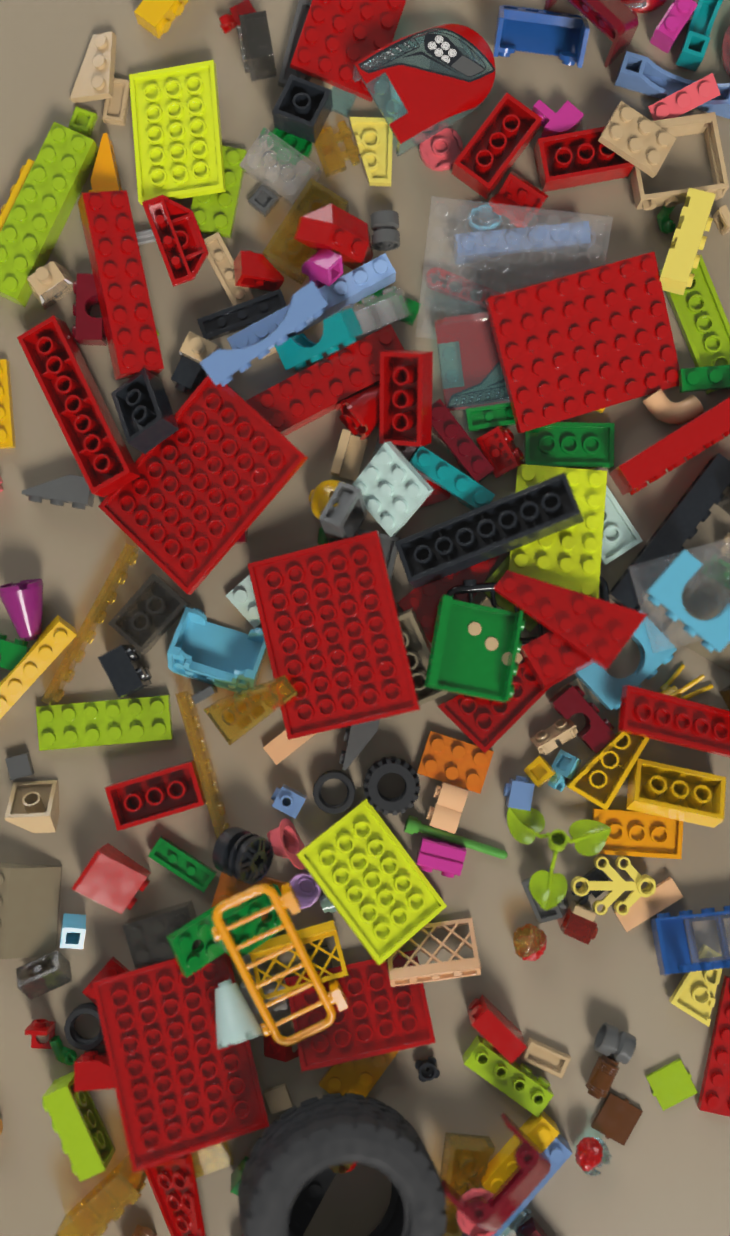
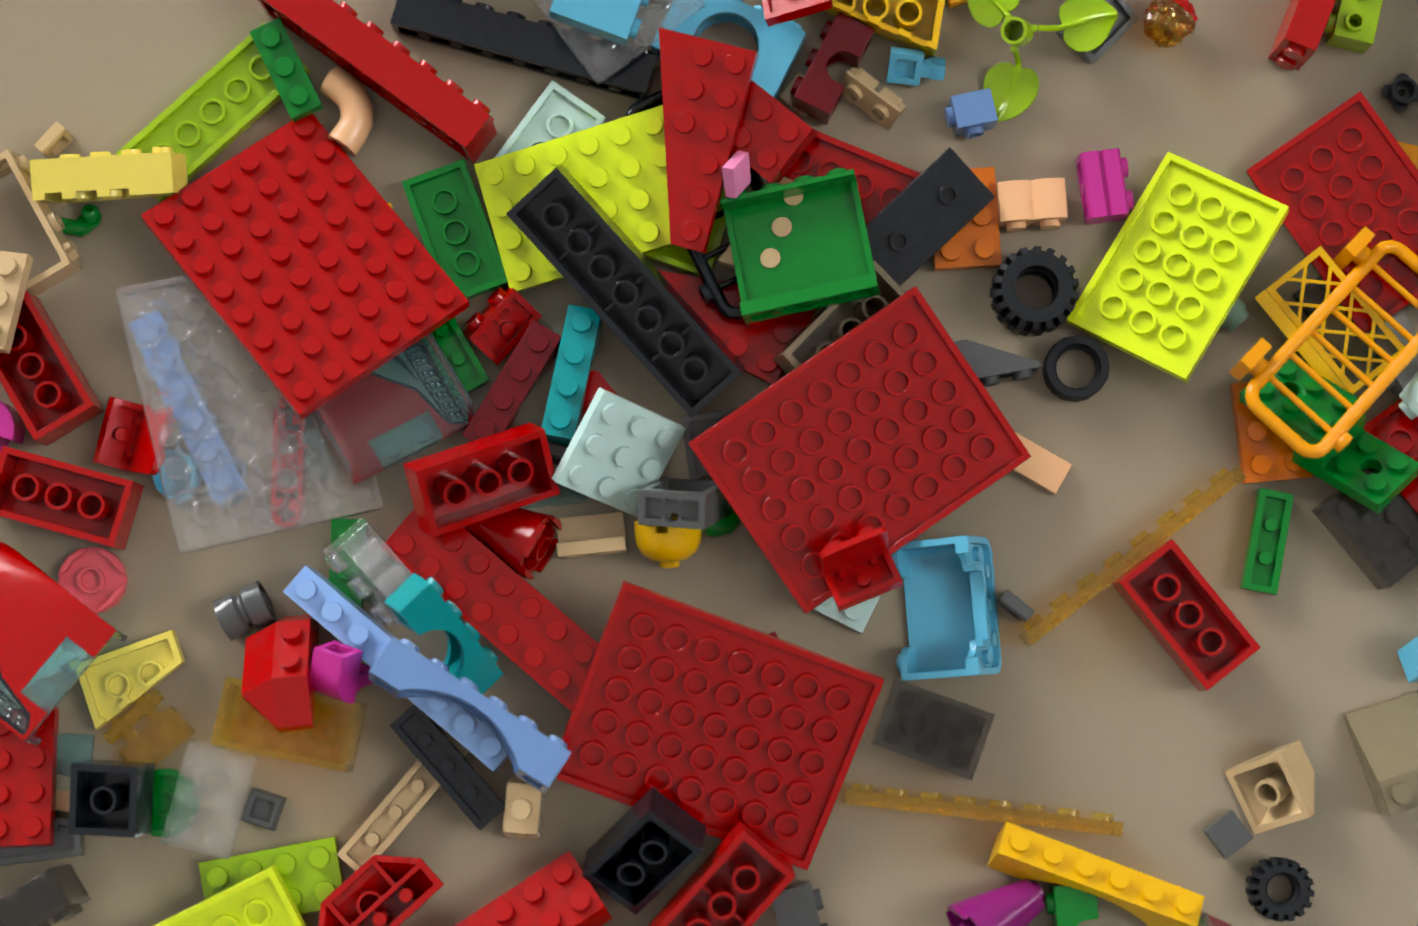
camera: 115 degrees left, 5 degrees down
(104, 722) = (1114, 736): lime plate -> none
(112, 879) = (1331, 629): slope -> none
(125, 670) = (1028, 729): black brick -> none
(188, 375) = (564, 813): black brick -> none
(242, 855) = (1218, 456): black wheel -> none
(246, 709) = (1009, 528): clear yellow wedge -> none
(256, 272) = (376, 773): red slope -> none
(258, 605) = (859, 568): none -> red bracket
(286, 842) = (1175, 405): coral piece -> none
(288, 800) = (1115, 426): medium blue brick -> none
(305, 889) = (1225, 353): lavender hair -> none
(414, 825) = (1076, 239): bright green piece -> none
(440, 970) = (1258, 123): light nougat fence -> none
(464, 736) = (926, 215): none -> black plate
(534, 627) = (736, 174): none -> bright pink tile
(539, 771) = (929, 97): yellow plate -> none

